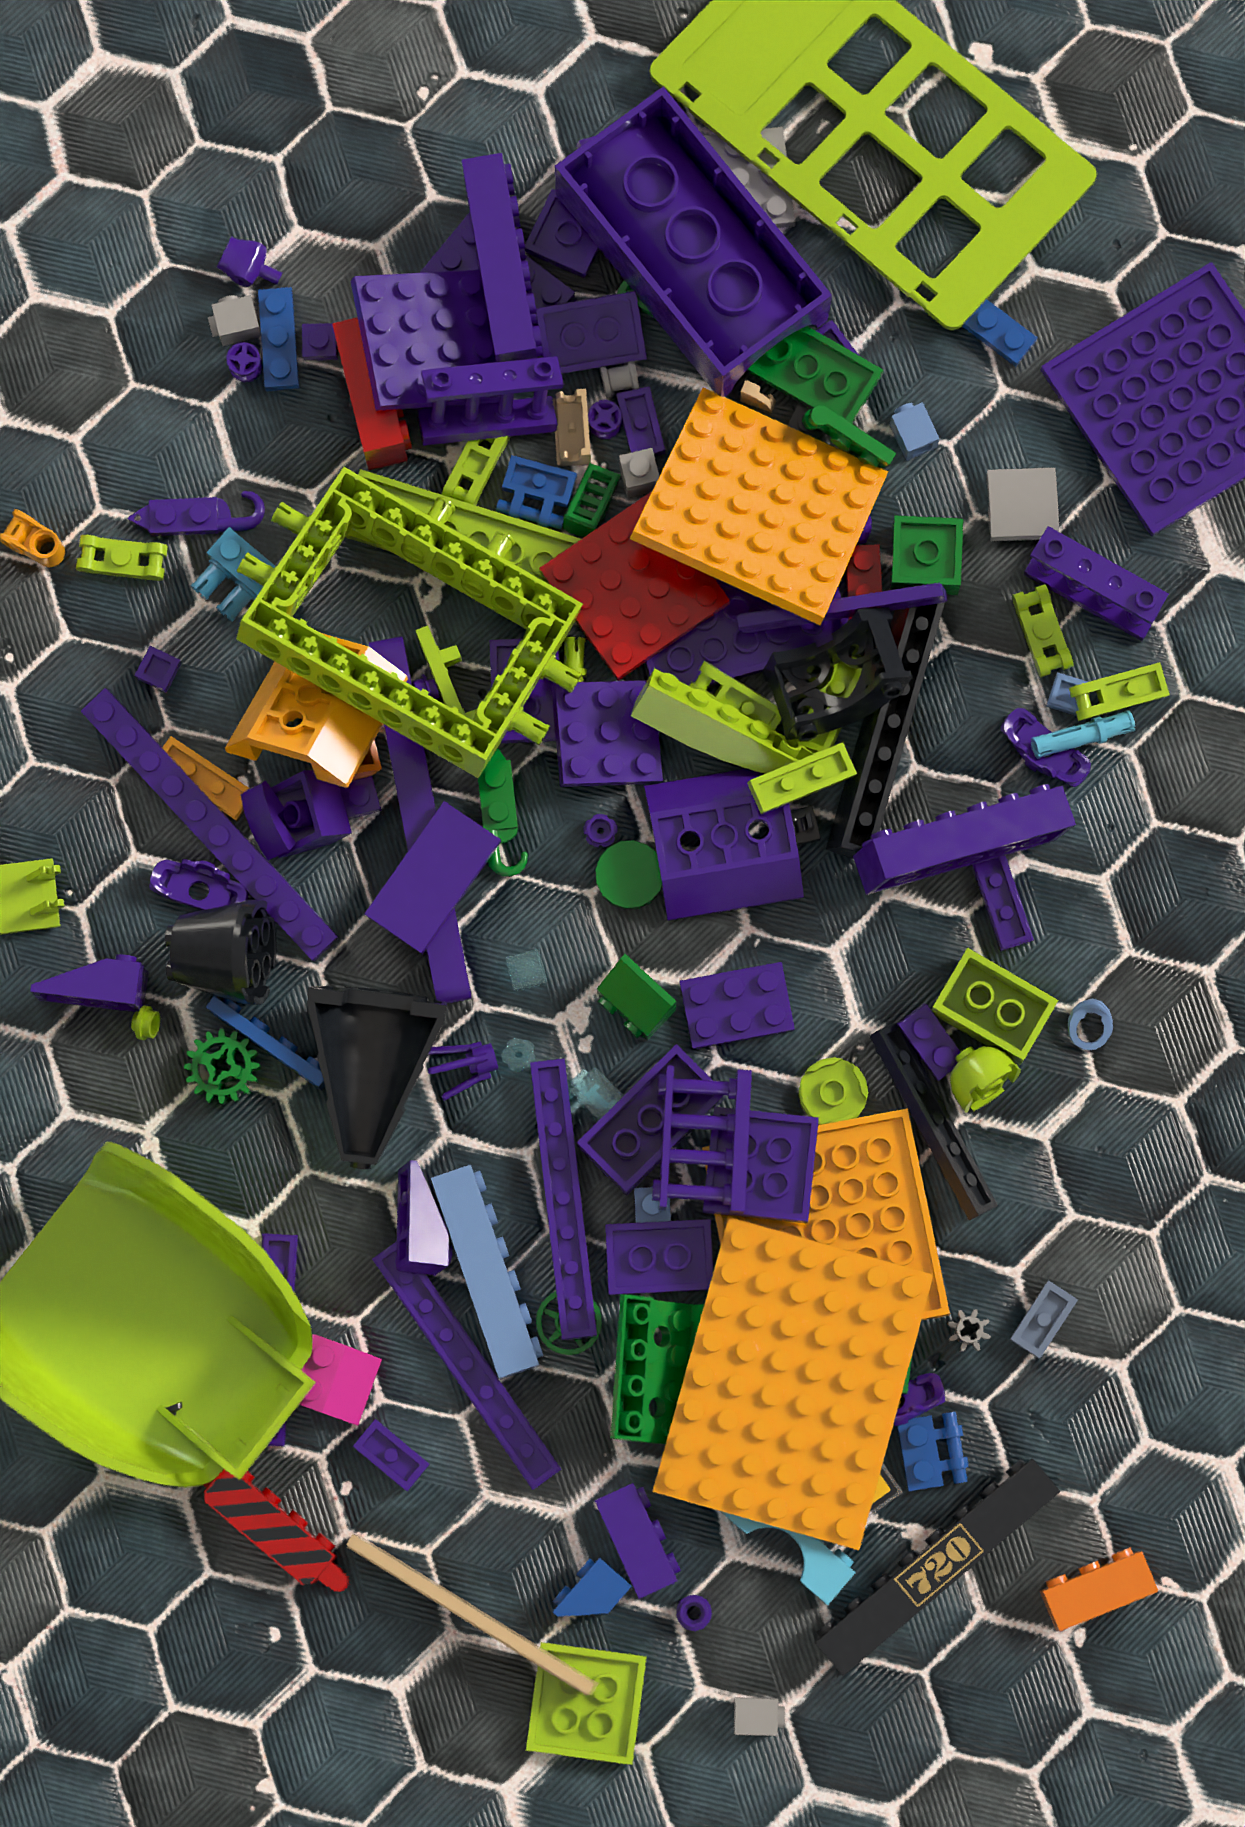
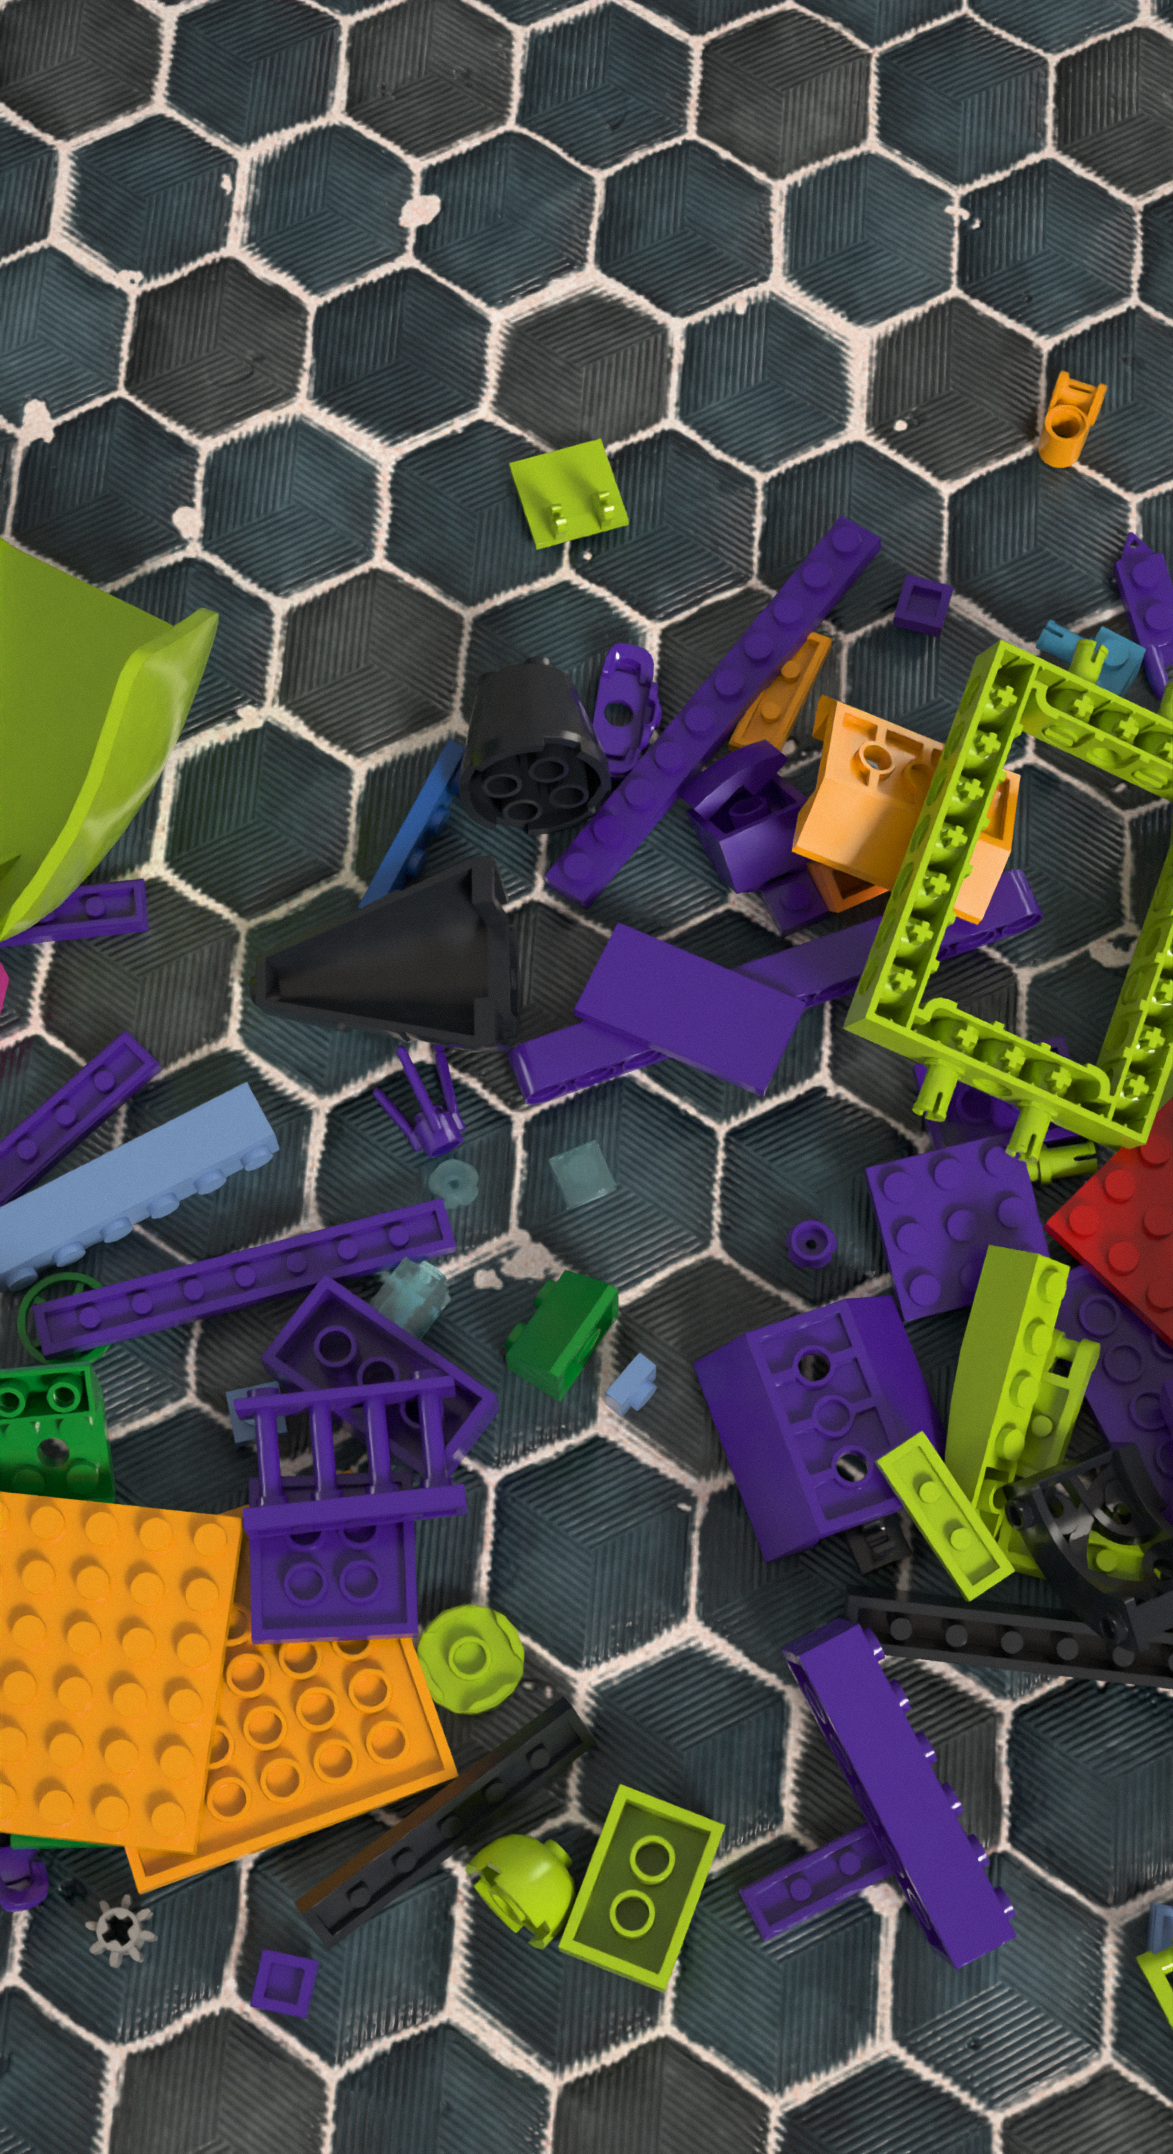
camera: 80 degrees right, 10 degrees down
(102, 984) = (461, 619): dark purple slope -> none
(121, 558) = (1071, 535): lime plate -> none
(145, 1023) = (417, 675): lime plate -> none
(208, 1061) = (352, 773): green gear -> none
(420, 1227) = (169, 1085): slope -> none
(428, 685) = (968, 962): dark purple plate -> none
(438, 663) = (1011, 971): lime hinge -> none
(499, 810) = (817, 1095): green plate -> none
(629, 875) = (749, 1291): green tile -> none
(659, 1257) = (179, 1432): dark purple plate -> none
(677, 959) = (632, 1386): none -> medium blue plate
(737, 1005) = (580, 1491): dark purple plate -> none
(930, 1041) = (572, 1796): dark purple plate -> none
(1015, 1234) = (285, 1984): none -> dark purple plate
(1043, 1319) = (154, 2053): sand blue plate -> none
(1066, 766) = (1097, 1872): dark purple piece -> none
(1079, 1012) = (672, 2057): medium blue piece -> none
(1096, 730) = (1126, 1991): medium azure pin -> none

